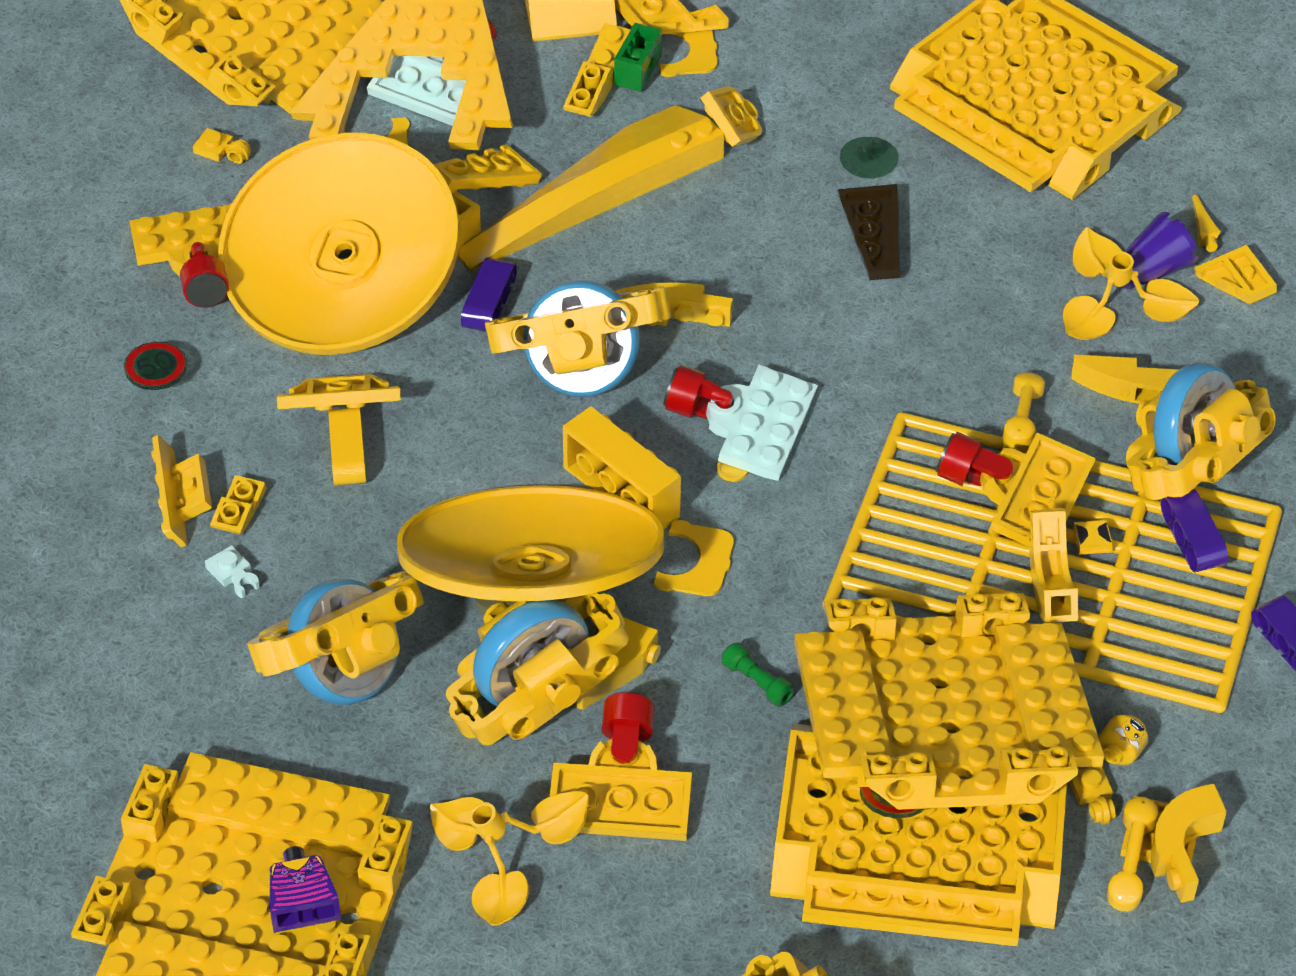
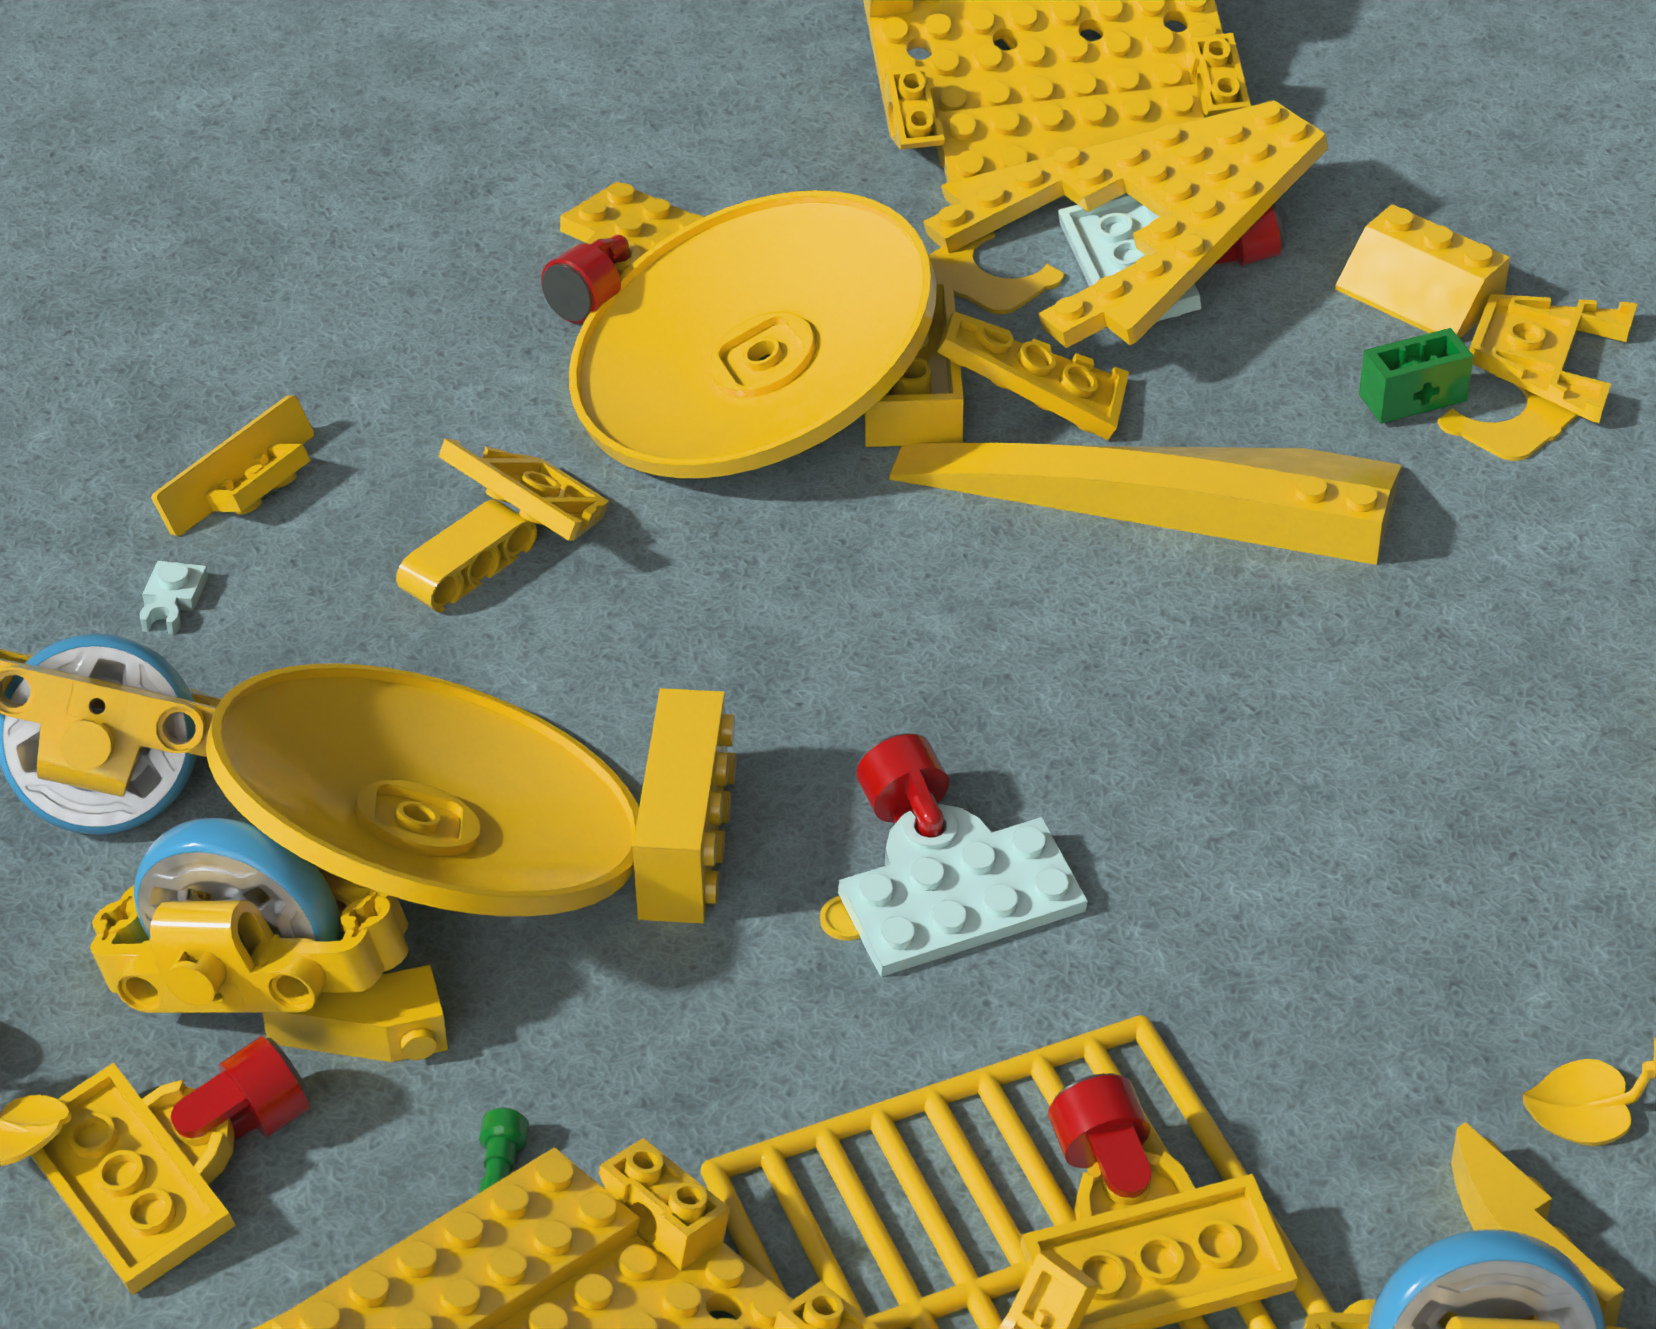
camera: 50 degrees right, 5 degrees down
(155, 365) = (412, 334): piece -> none
(217, 144) = (819, 169): yellow plate -> none
(239, 506) = (259, 540): yellow slope -> none
(488, 293) = (858, 510): dark purple beam -> none
(580, 334) = (848, 611): piece -> none
(596, 74) = (1327, 369): yellow slope -> none
(690, 303) = (1042, 663): yellow slope -> none
(709, 573) = (621, 1016): yellow piece -> none
(733, 115) = (1433, 512): yellow plate -> none
(869, 157) = (1570, 692): clear green piece -> none
(875, 227) = (1449, 772): dark brown wing -> none
(1020, 430) = (1359, 1118): yellow piece -> none

